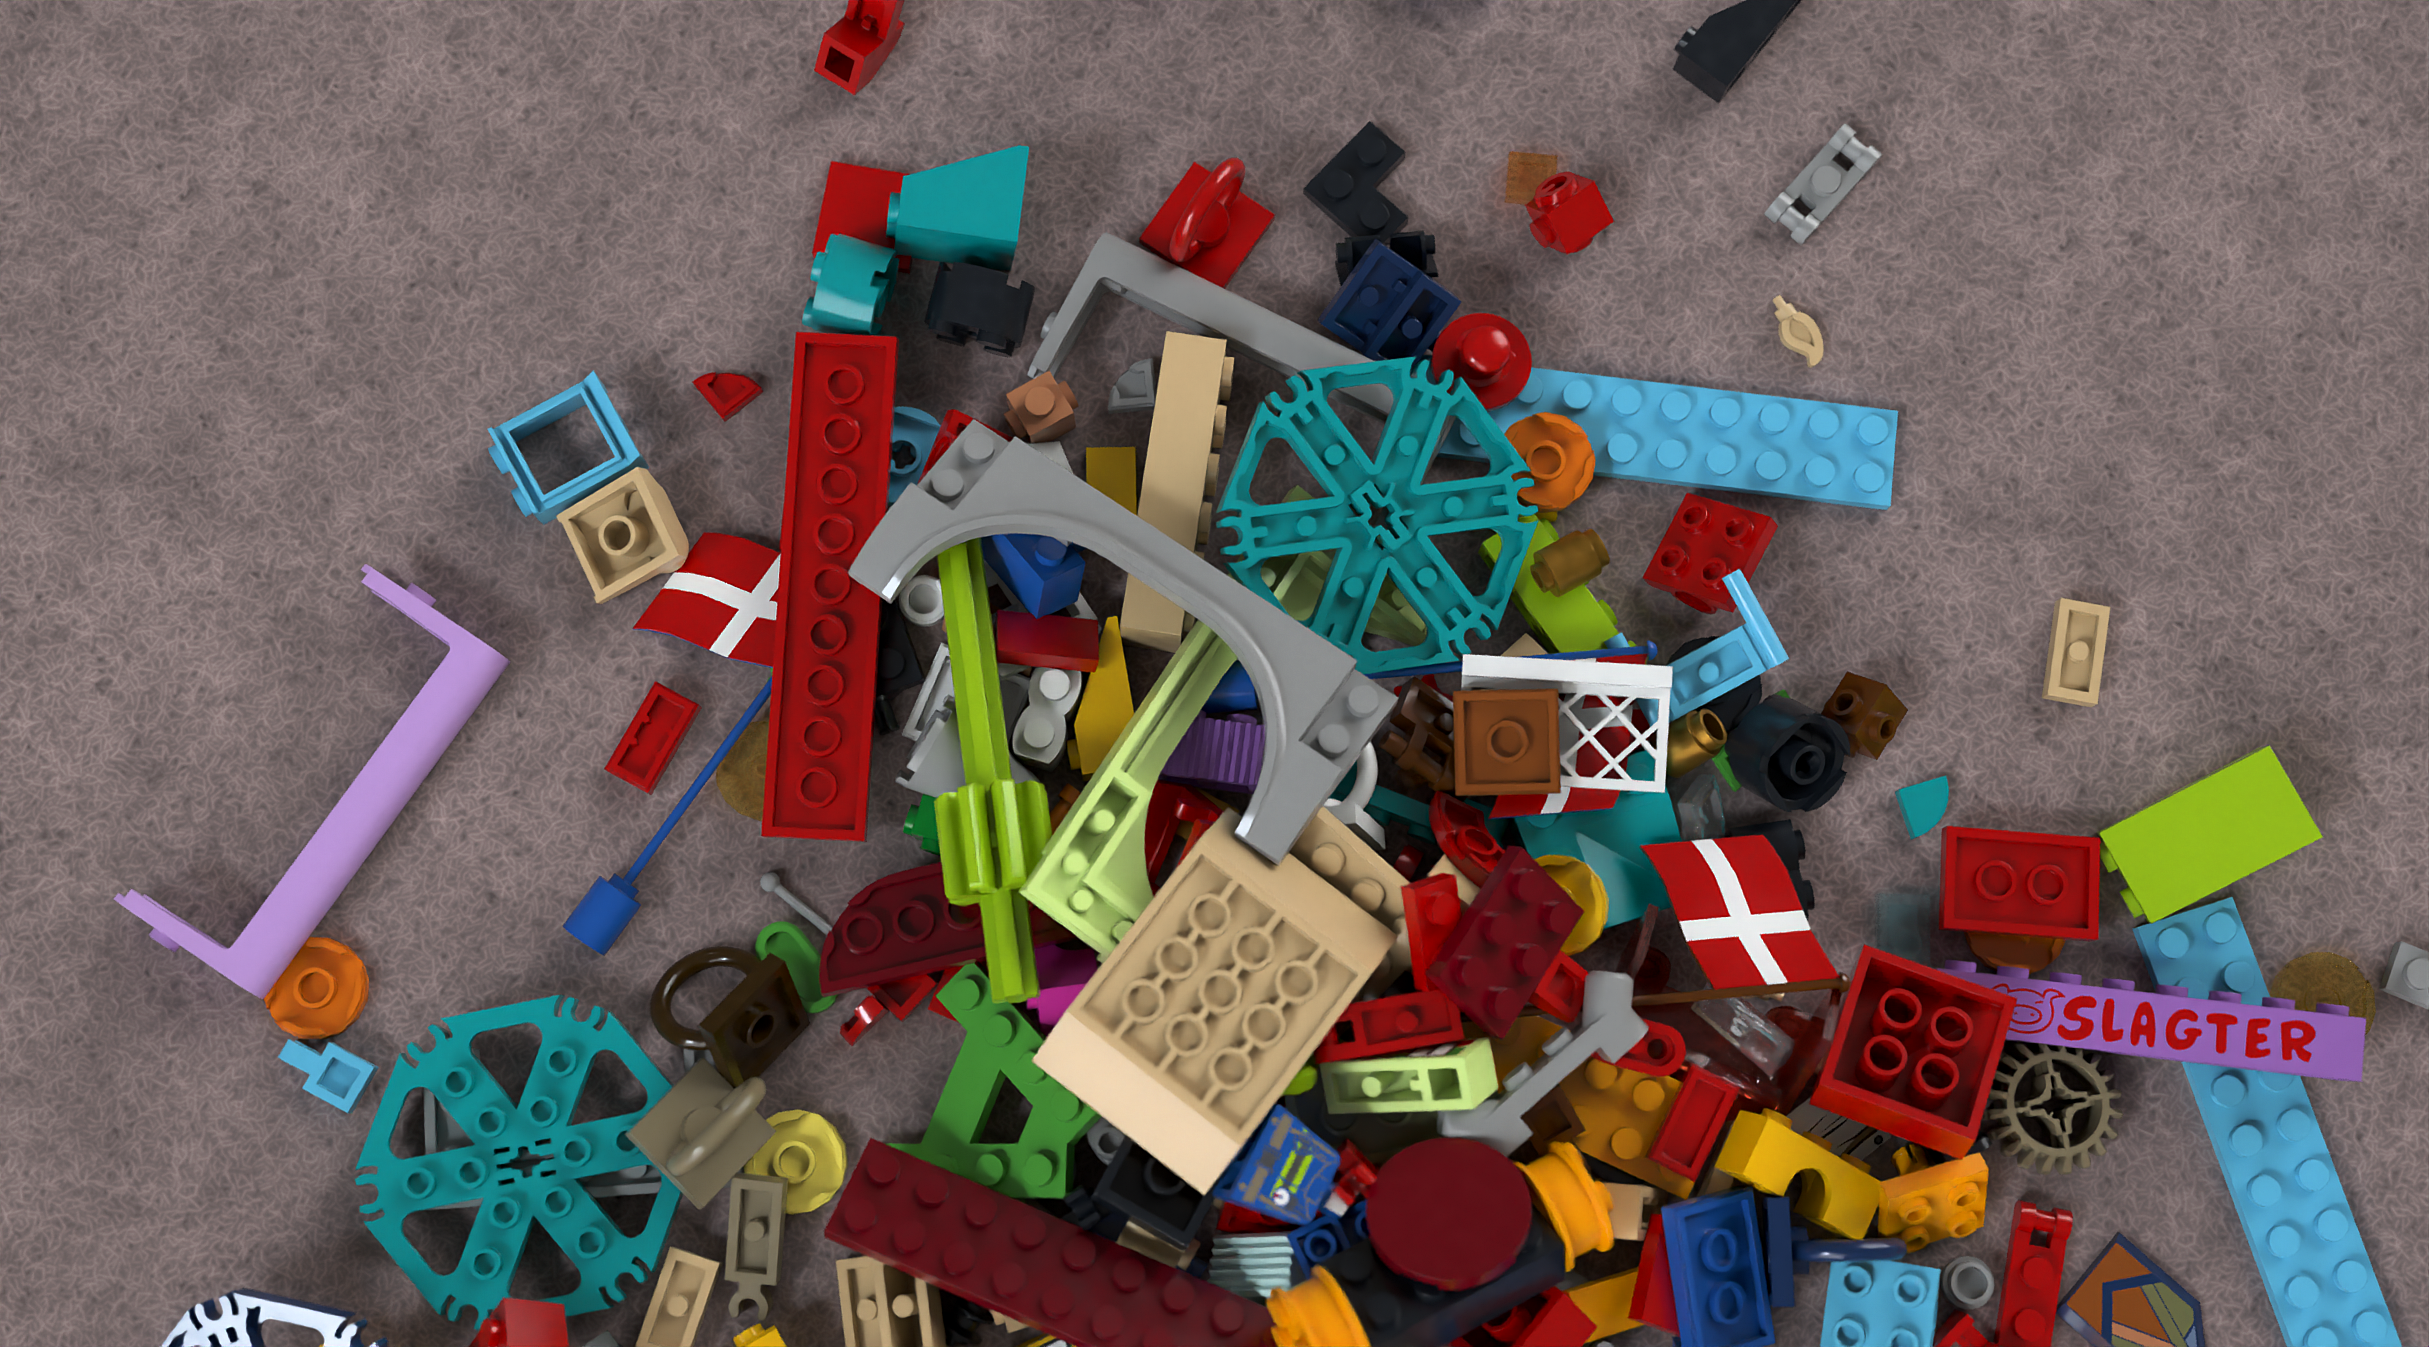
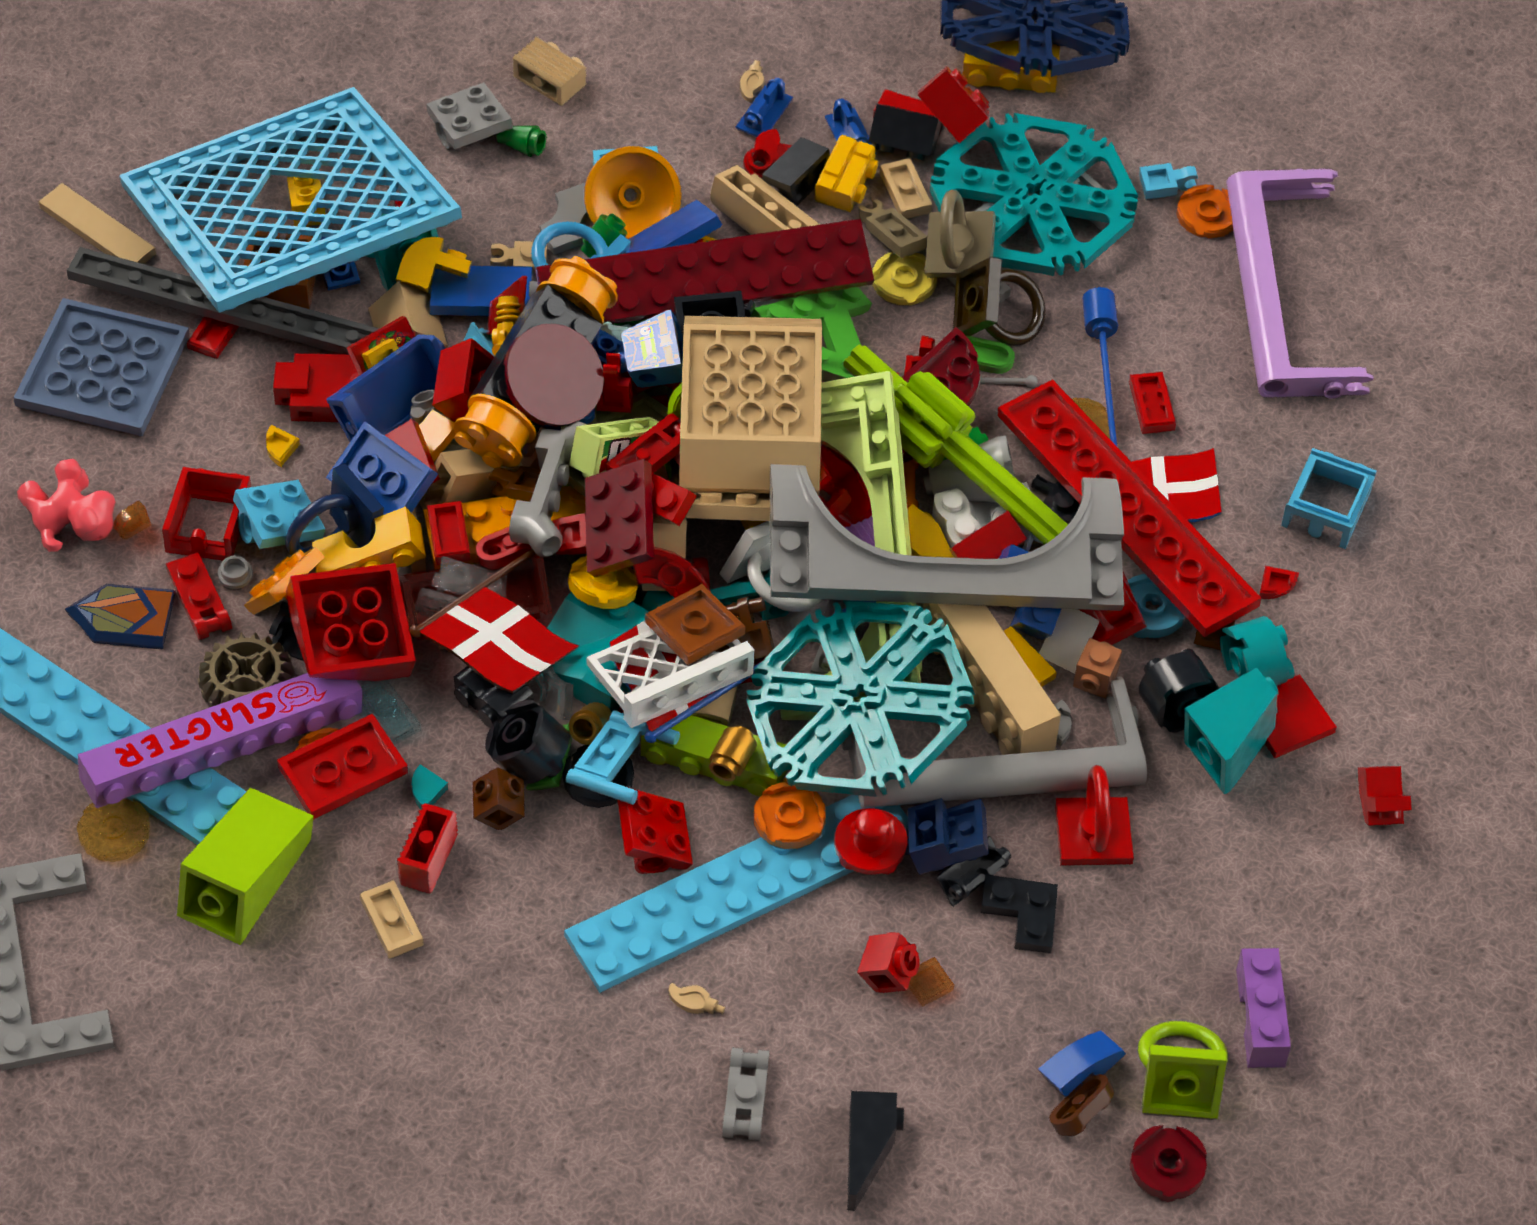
camera: 145 degrees right, 25 degrees down
(625, 534) = (1256, 477): tan slope -> none
(1713, 1034) = (462, 577): none -> clear hinge
(1989, 703) = (427, 848): none -> red brick

